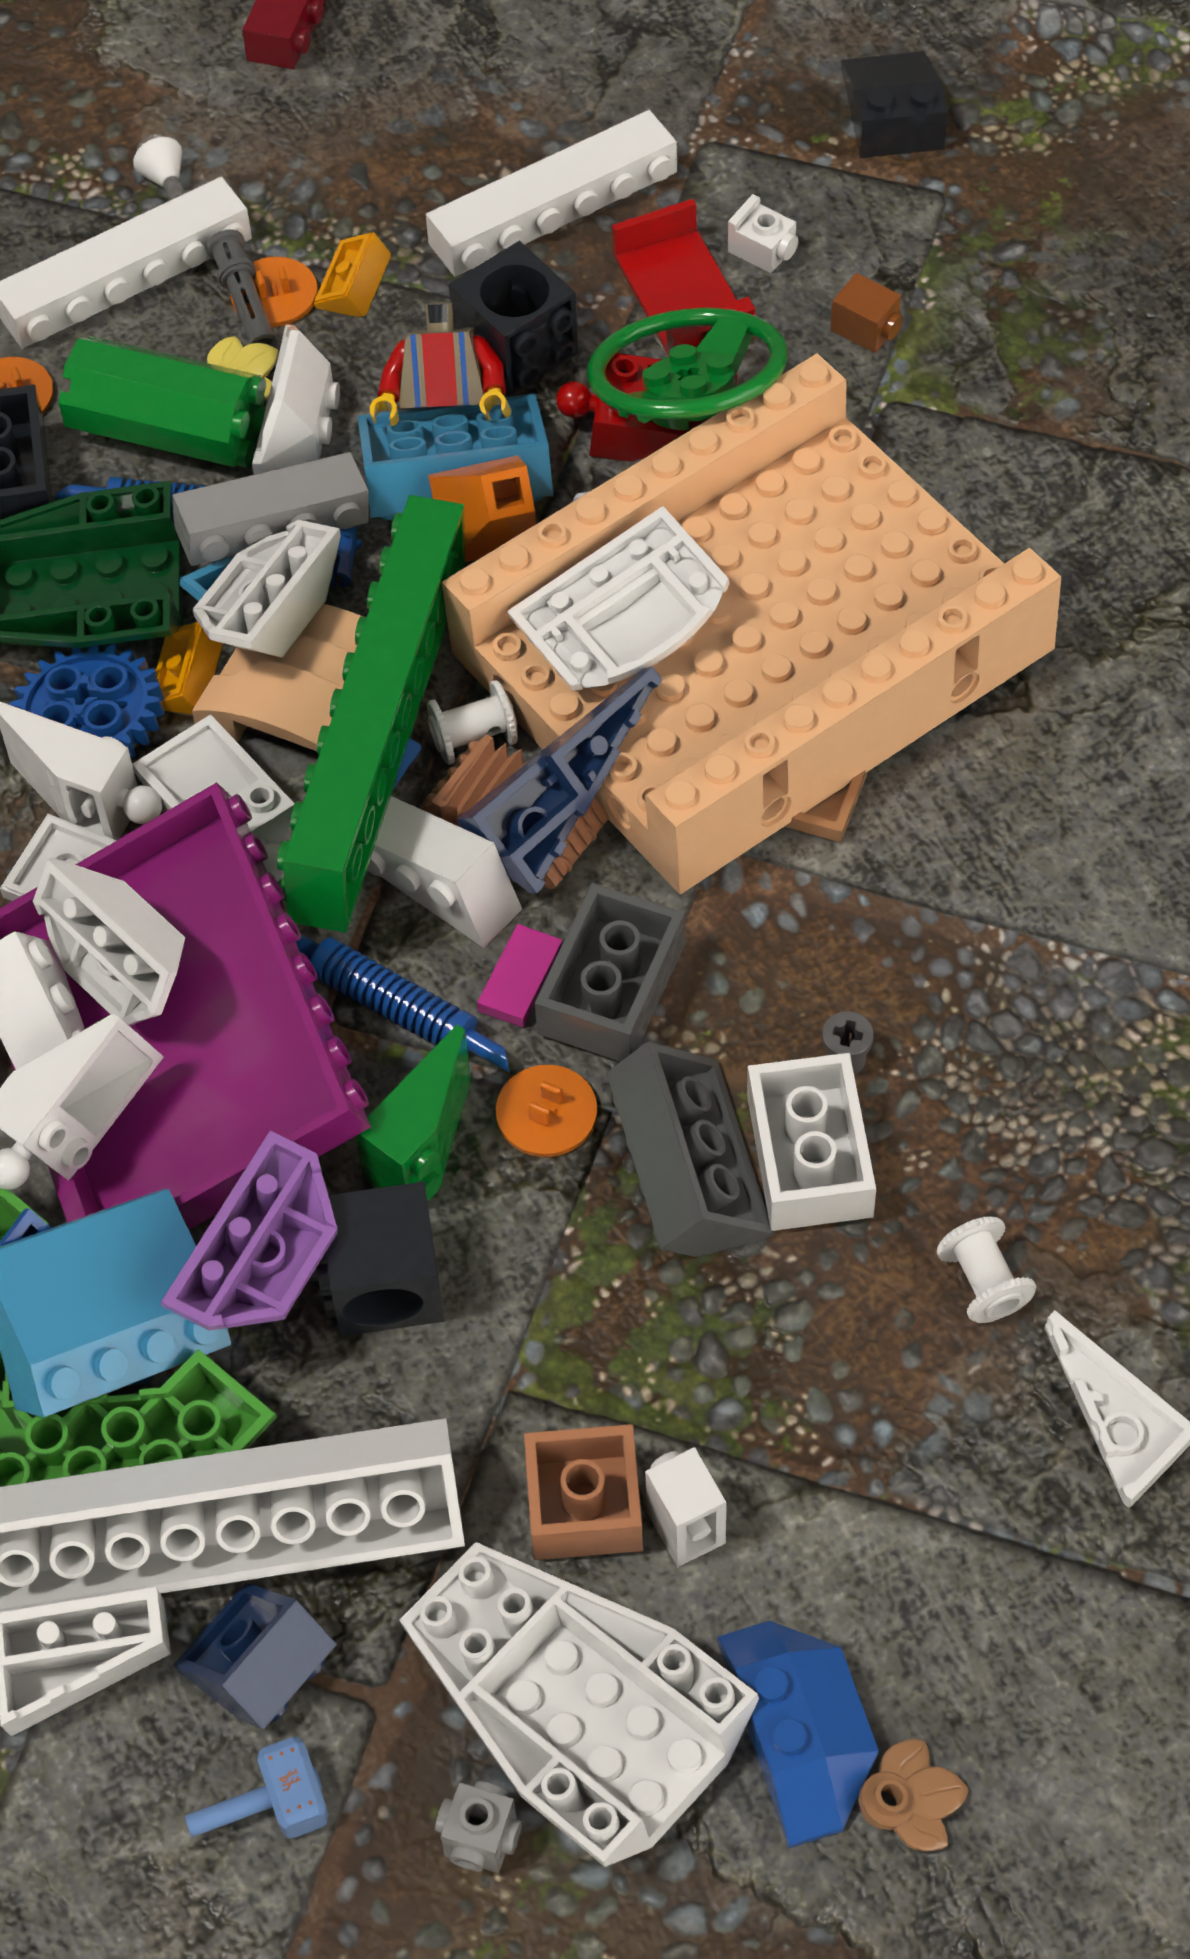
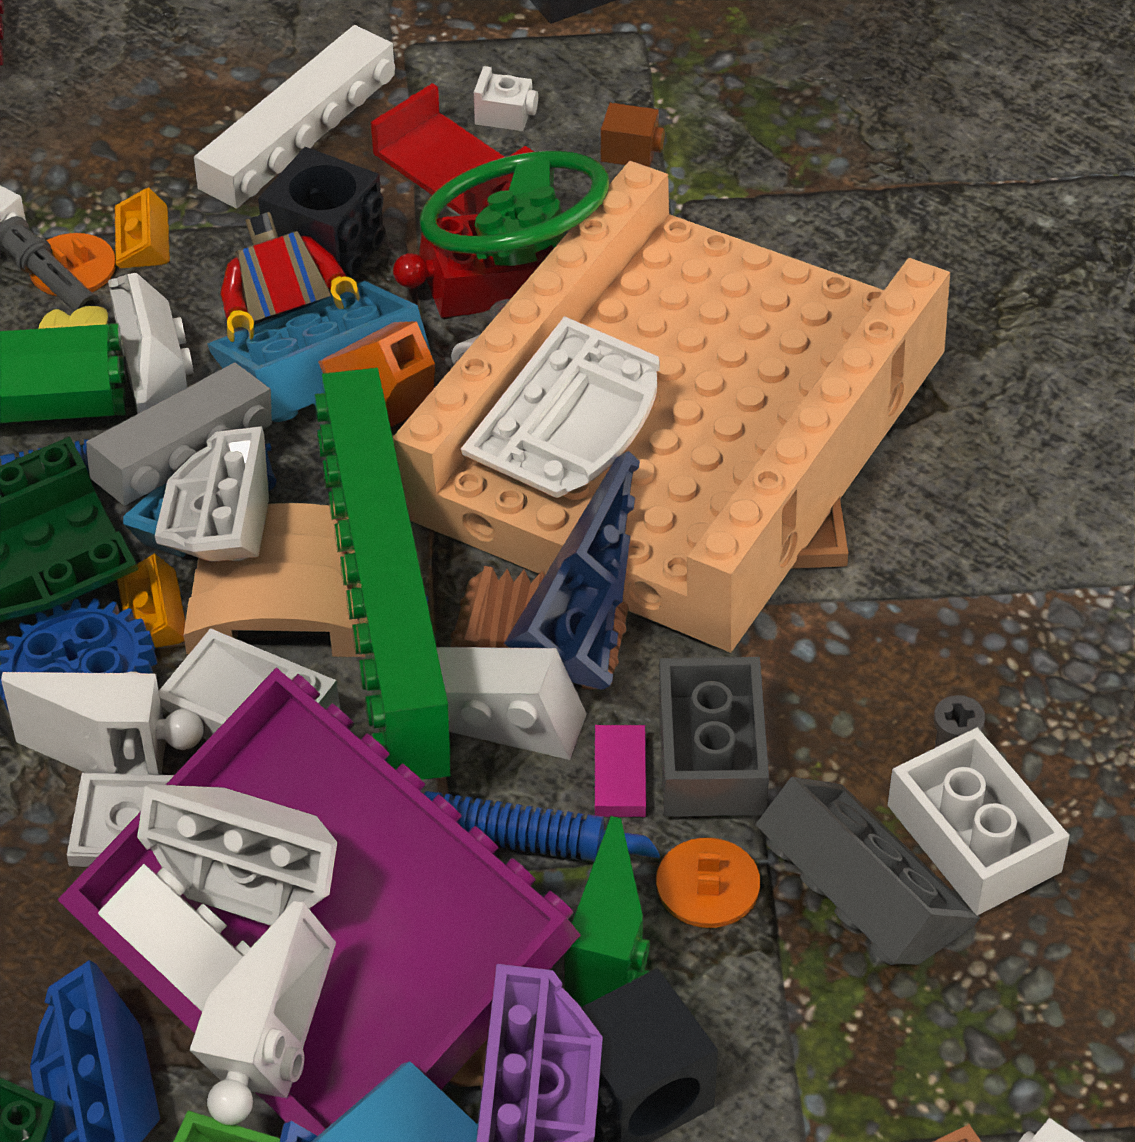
camera: 25 degrees left, 10 degrees down
(472, 722) = (462, 562): white hose -> none

